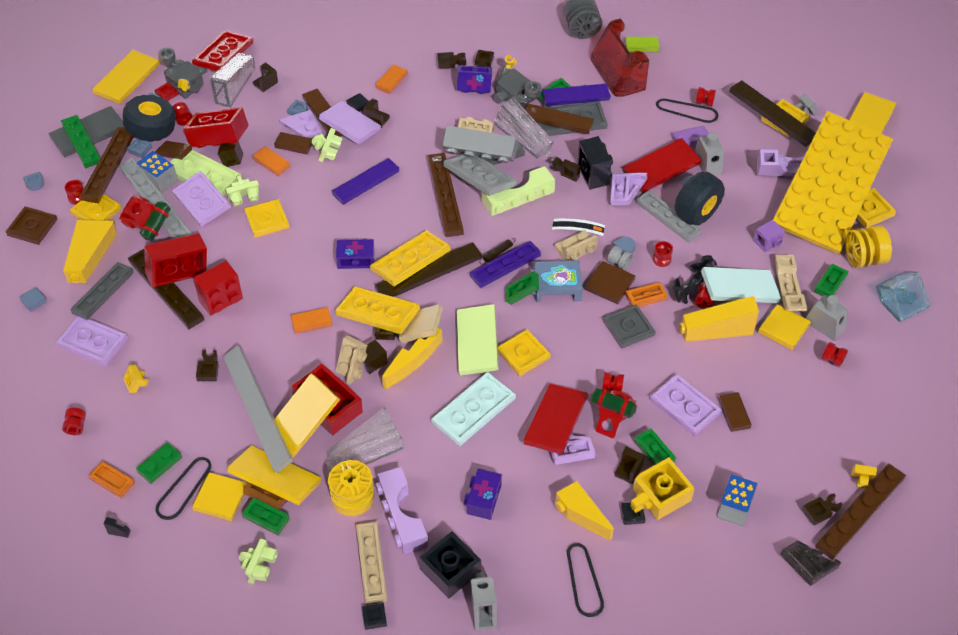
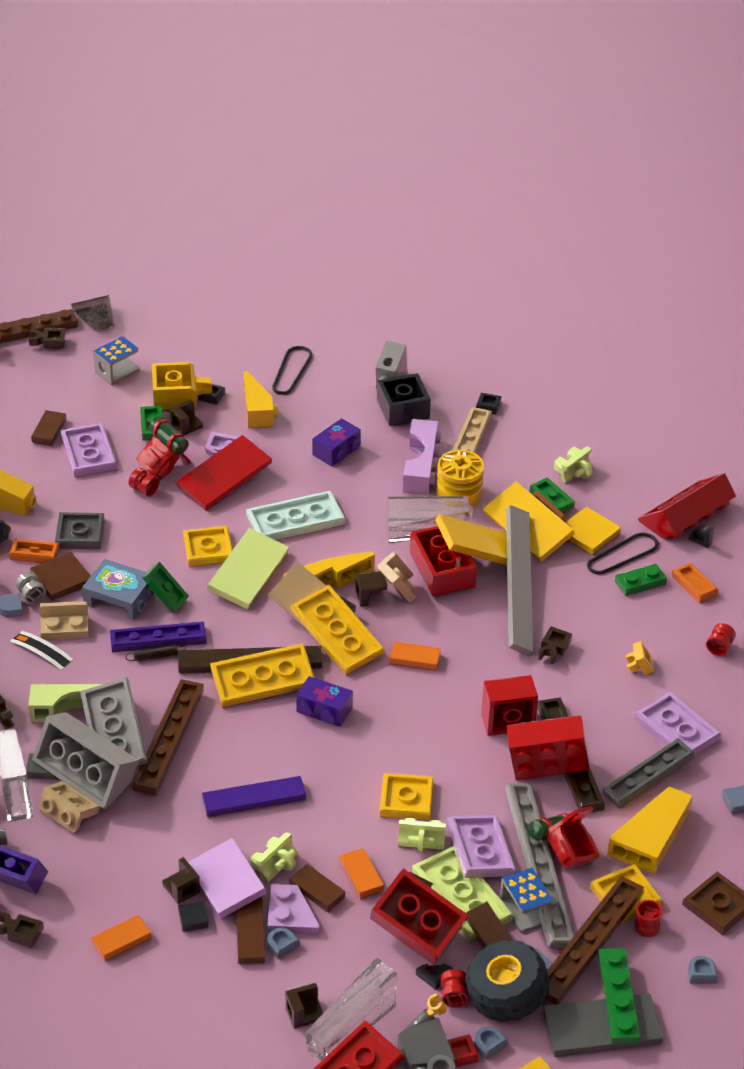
camera: 155 degrees left, 10 degrees down
(138, 555) = (689, 506): none -> red slope

